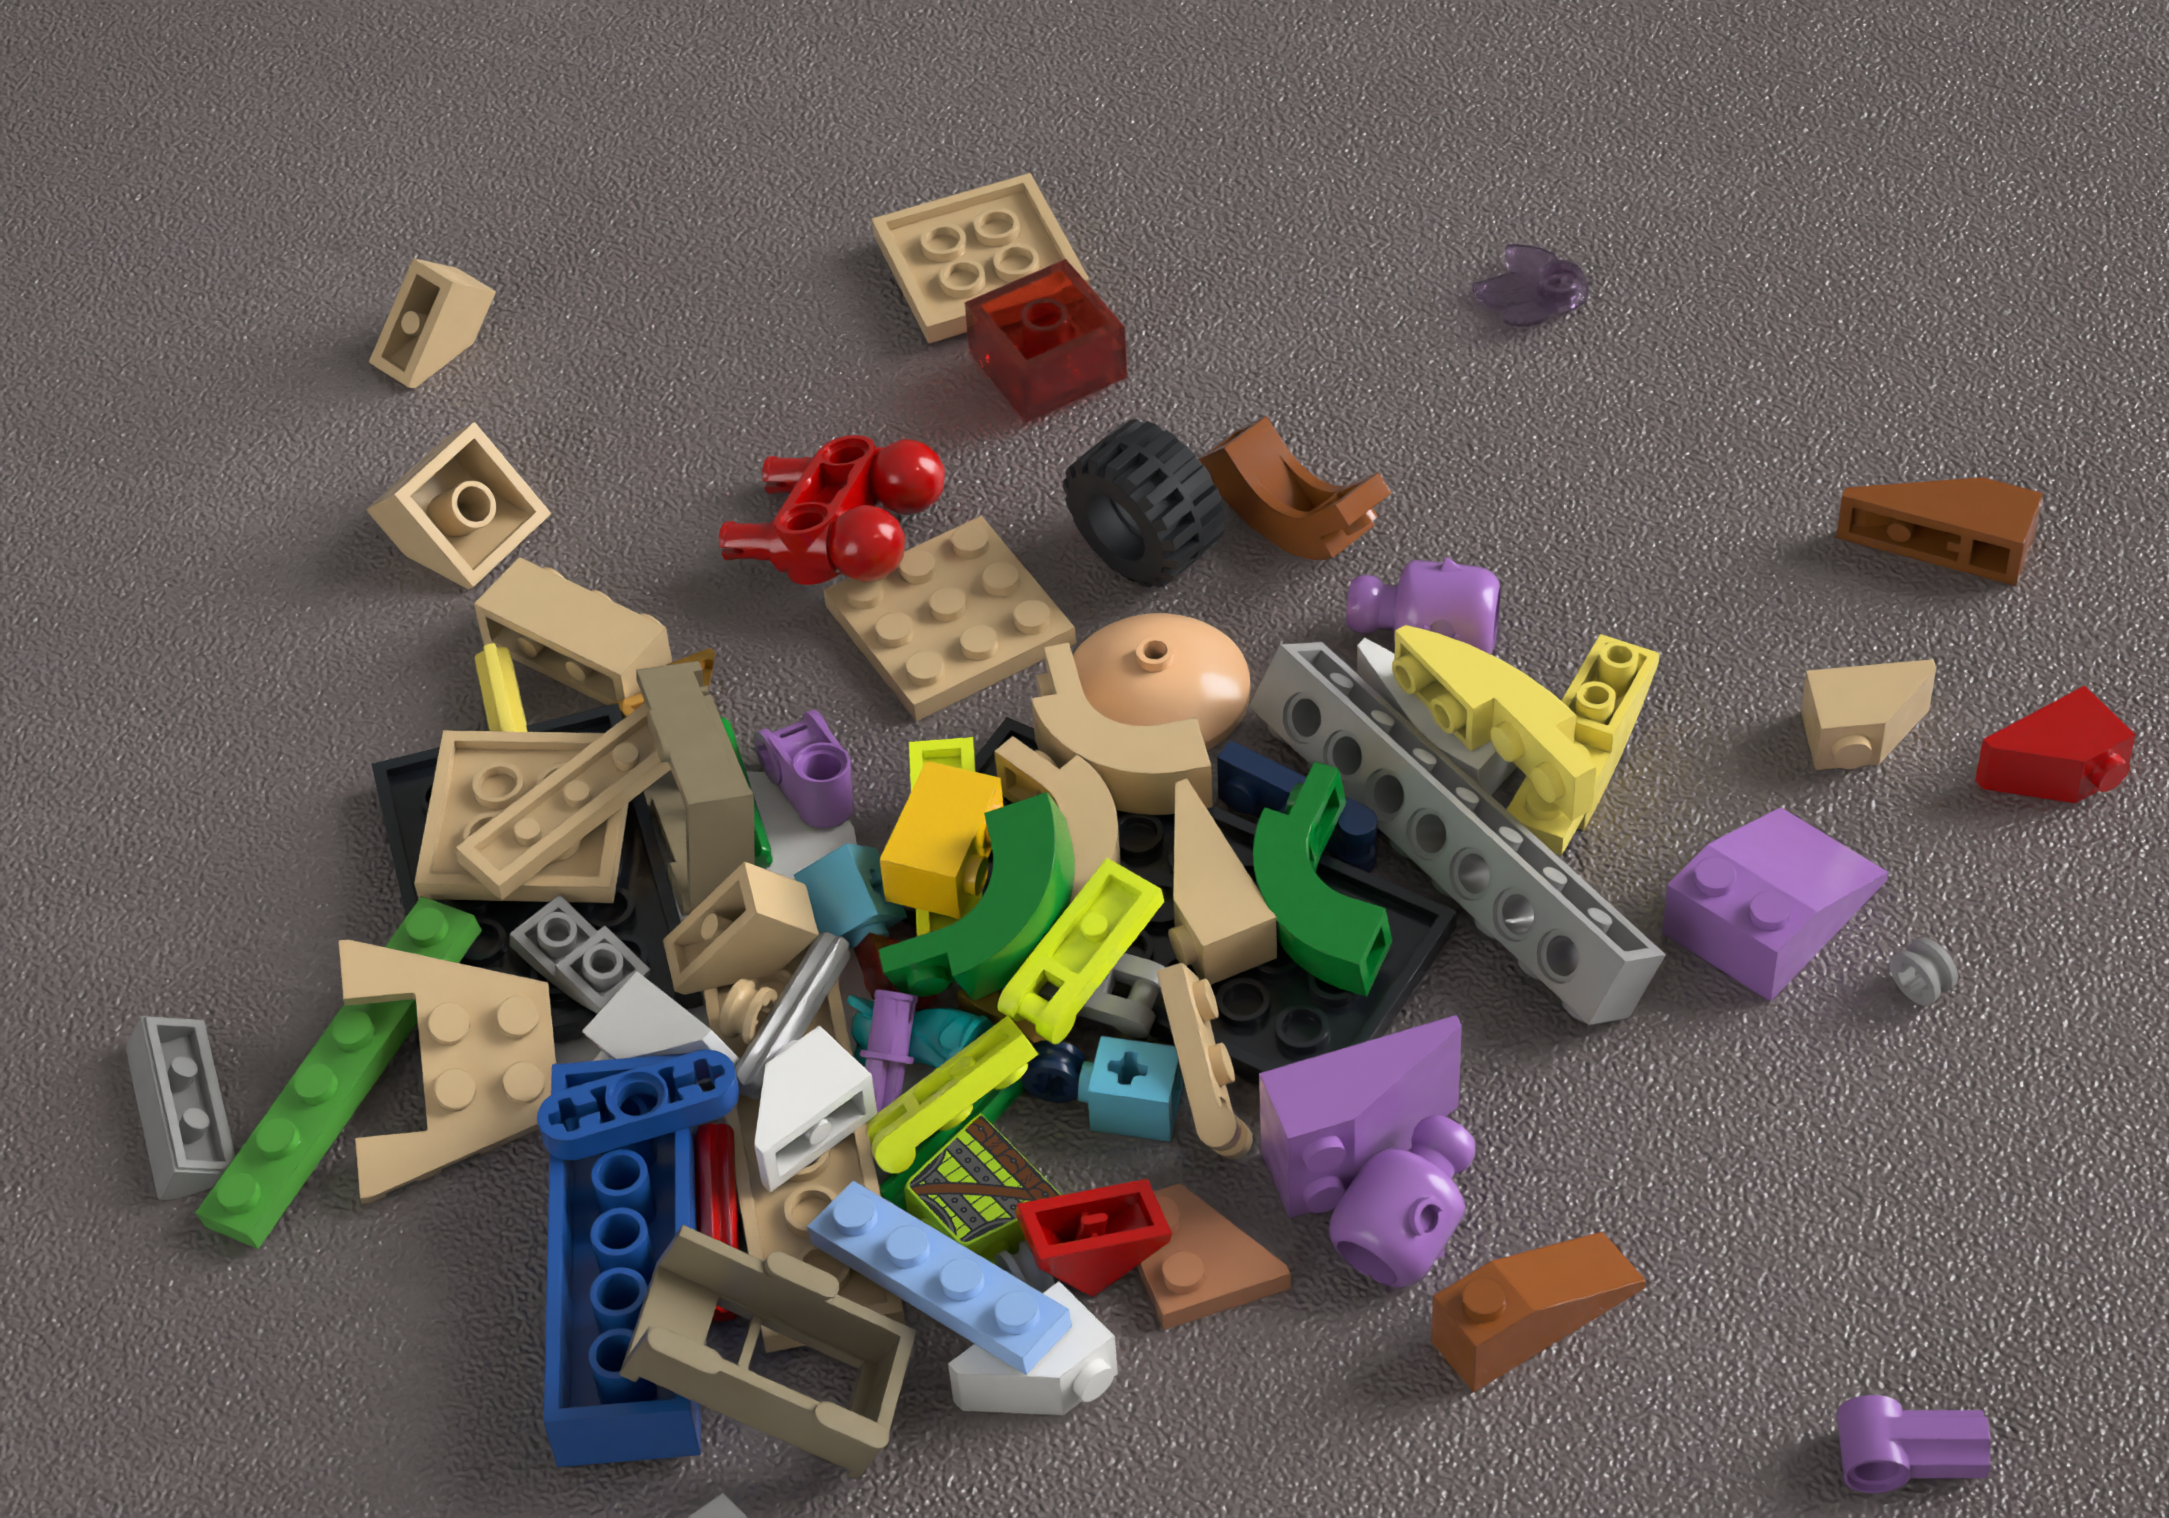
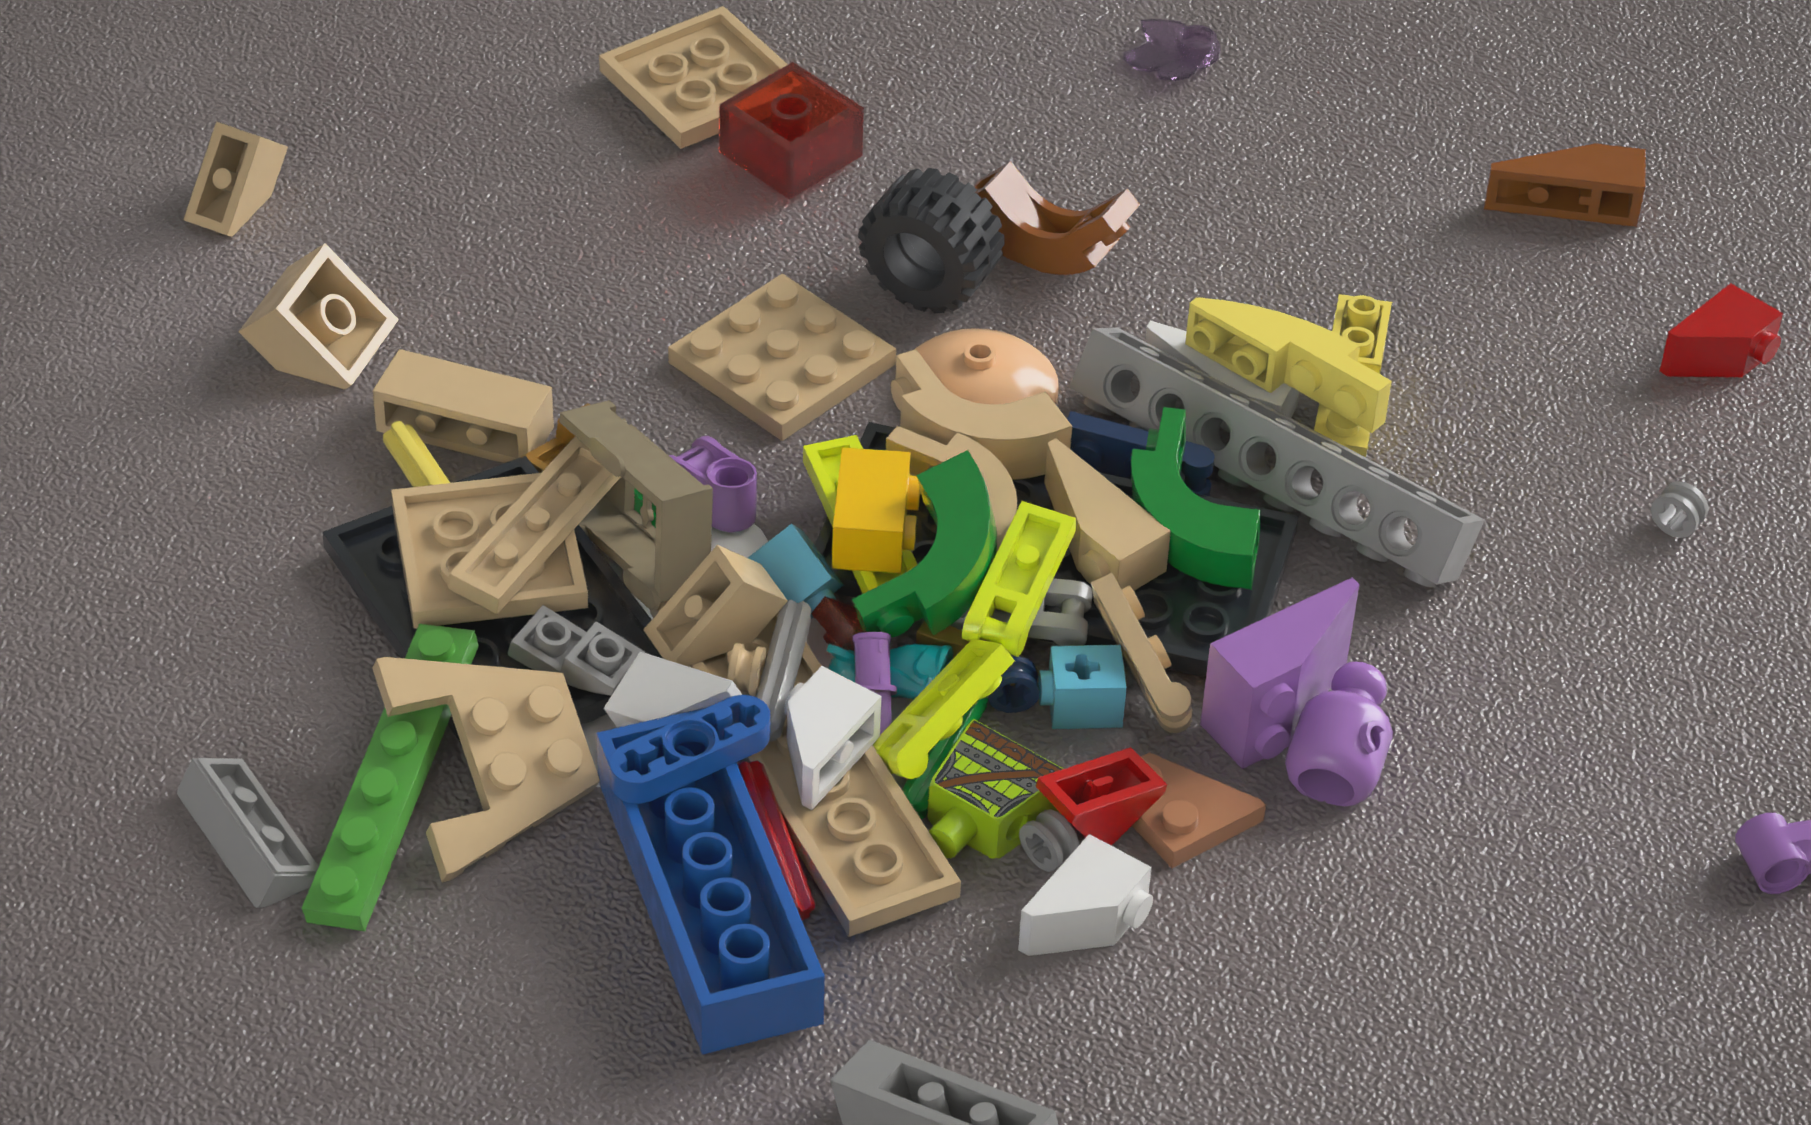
camera: 20 degrees left, 5 degrees down
(790, 1300) = (885, 886): dark tan piece -> none
(836, 510) = (669, 280): red piece -> none
(940, 1277) = (989, 845): light blue plate -> none
(1432, 597) = (1180, 283): medium lavender piece -> none
(1528, 1304) = (1462, 800): dark orange slope -> none
(1767, 899) = (1537, 478): medium lavender slope -> none
(1863, 711) = (1558, 328): tan slope -> none

